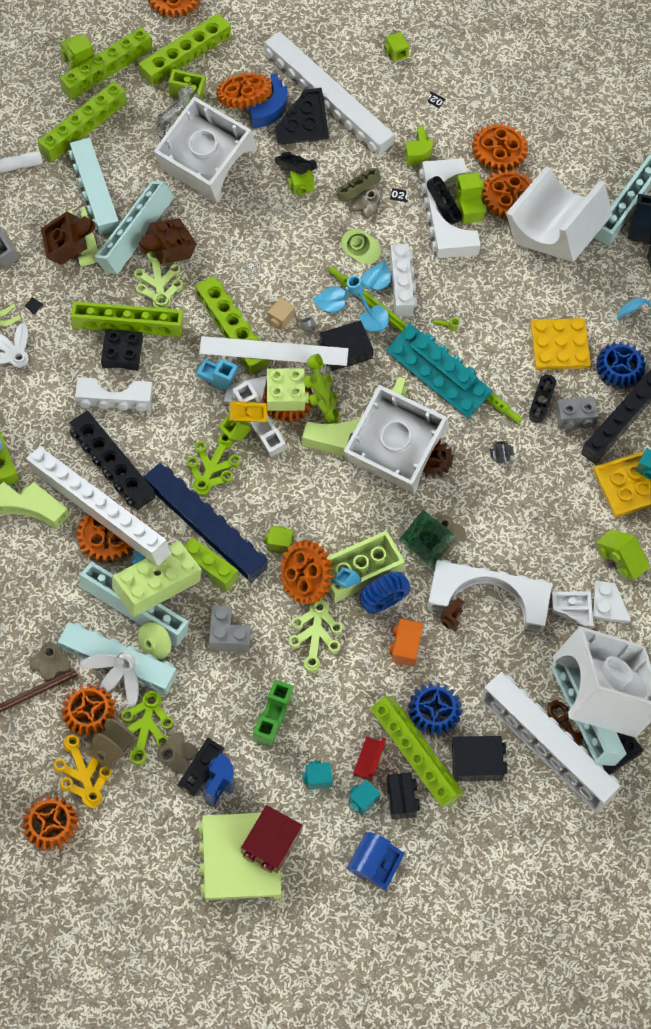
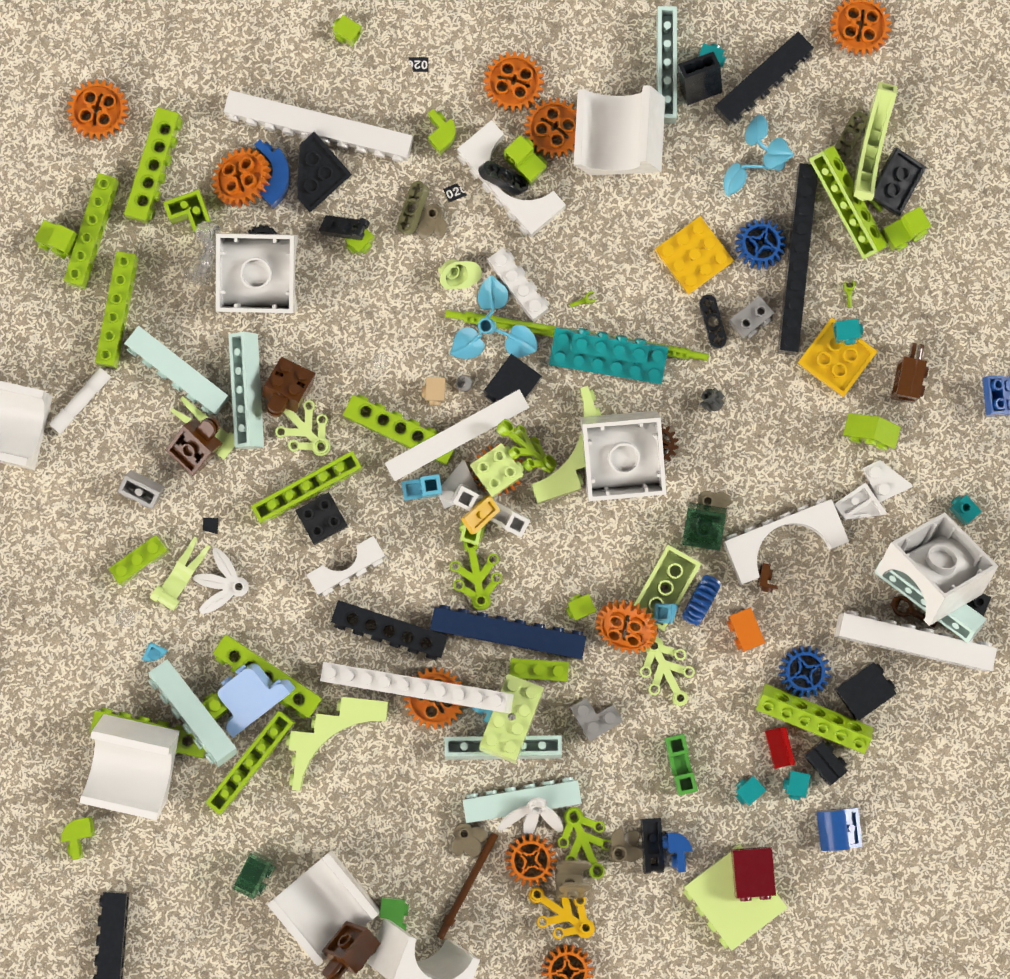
camera: 30 degrees left, 20 degrees up
(154, 640) = (542, 767): yellowish green dish -> none

